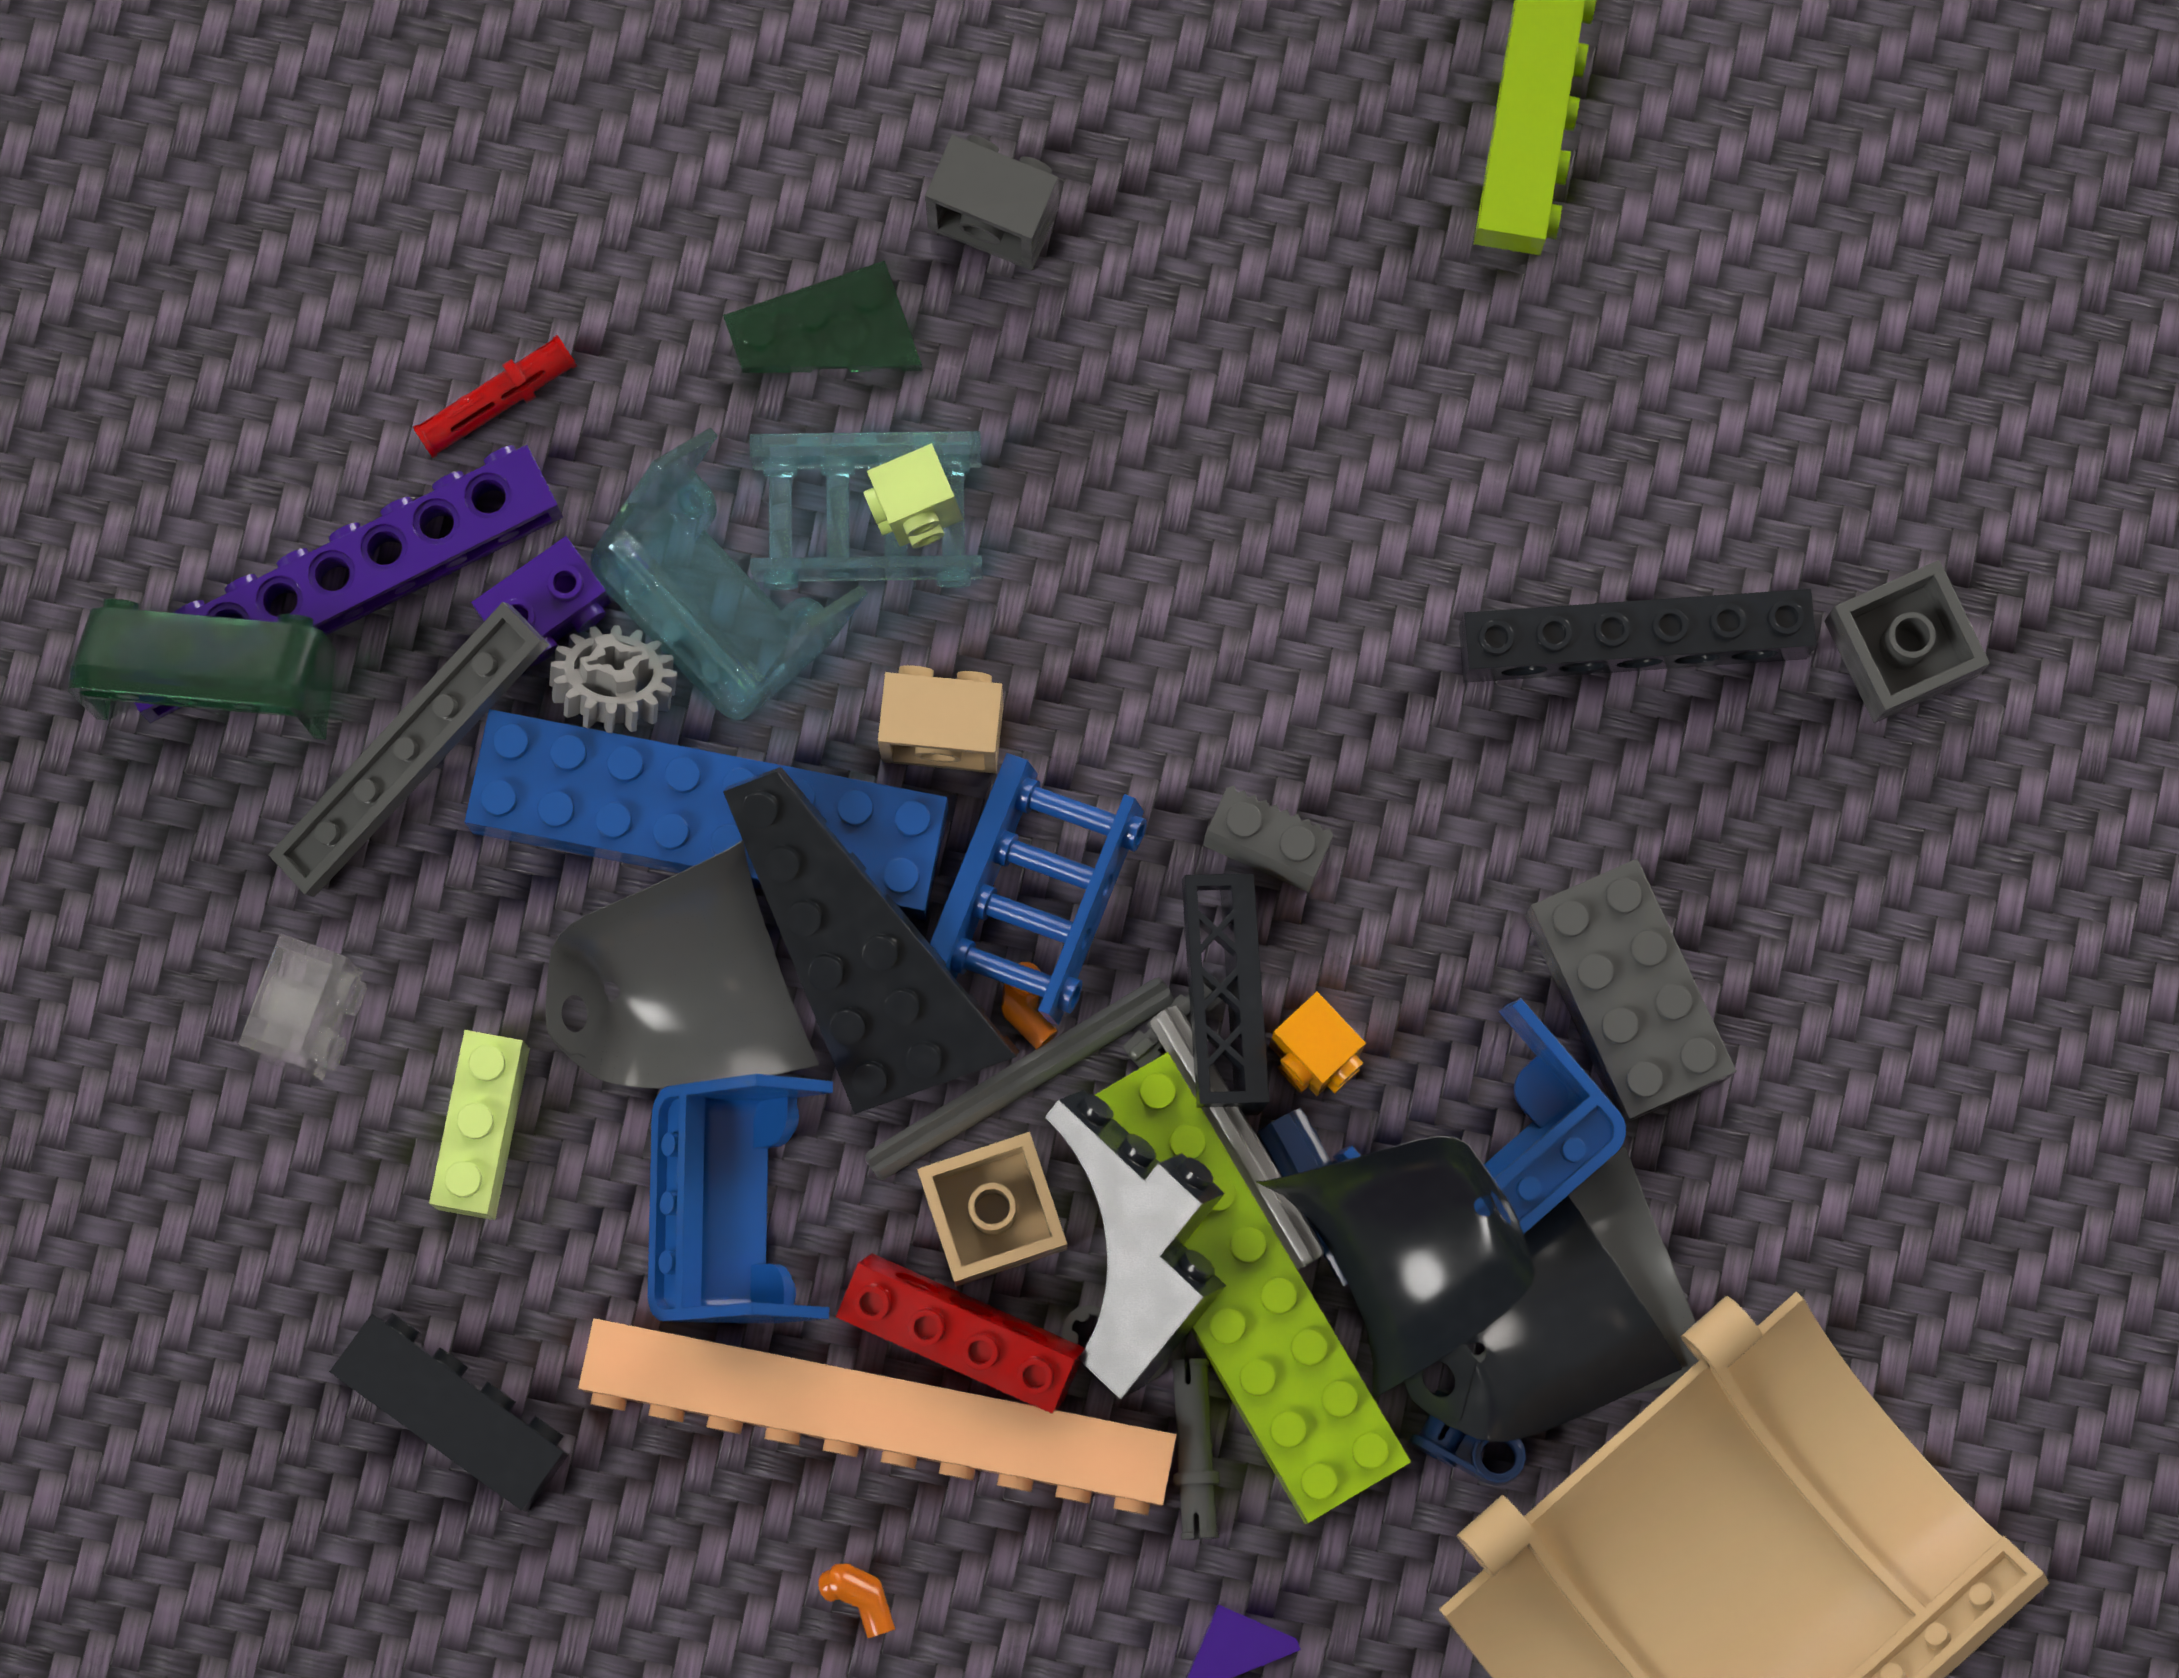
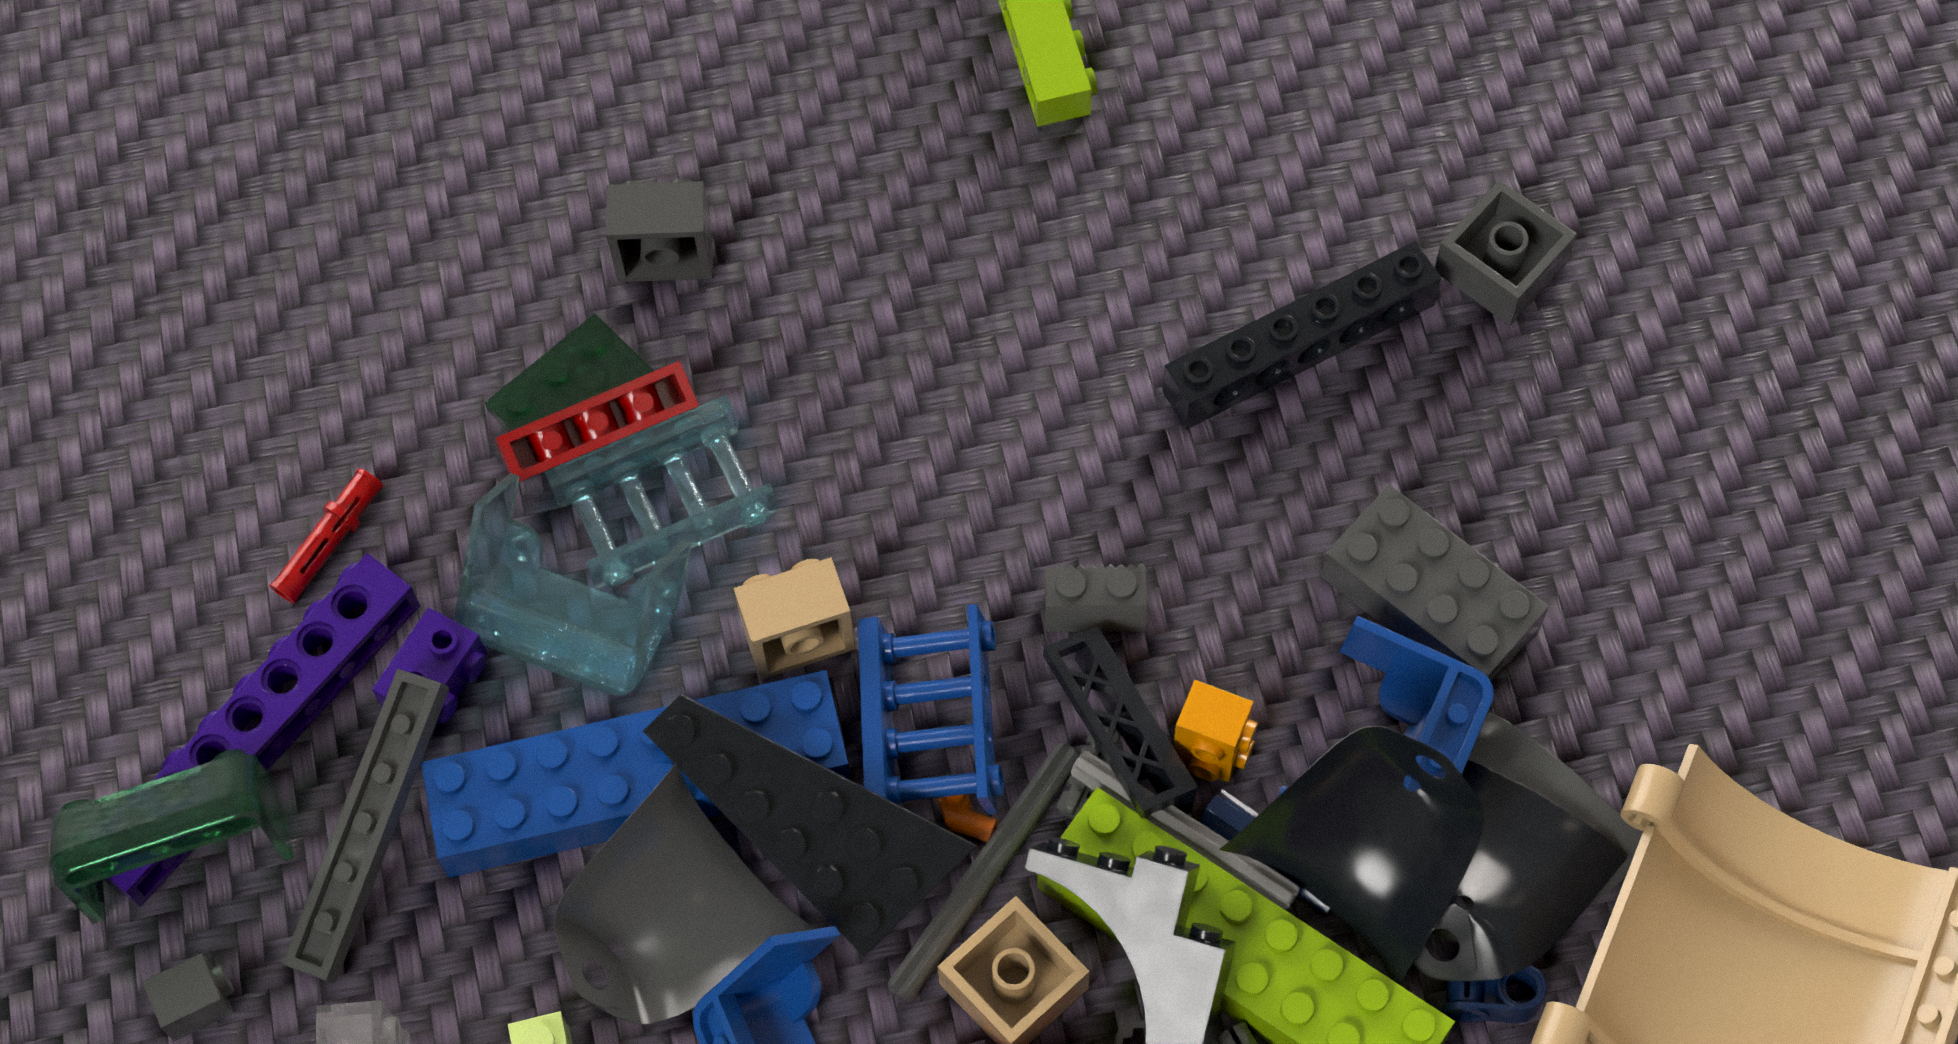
camera: 20 degrees left, 15 degrees down
(163, 847) = (189, 996): none -> dark grey brick
(612, 679) = (513, 700): light grey gear -> none
(828, 399) = (596, 422): none -> red brick
(912, 498) = (696, 453): yellowish green brick -> none

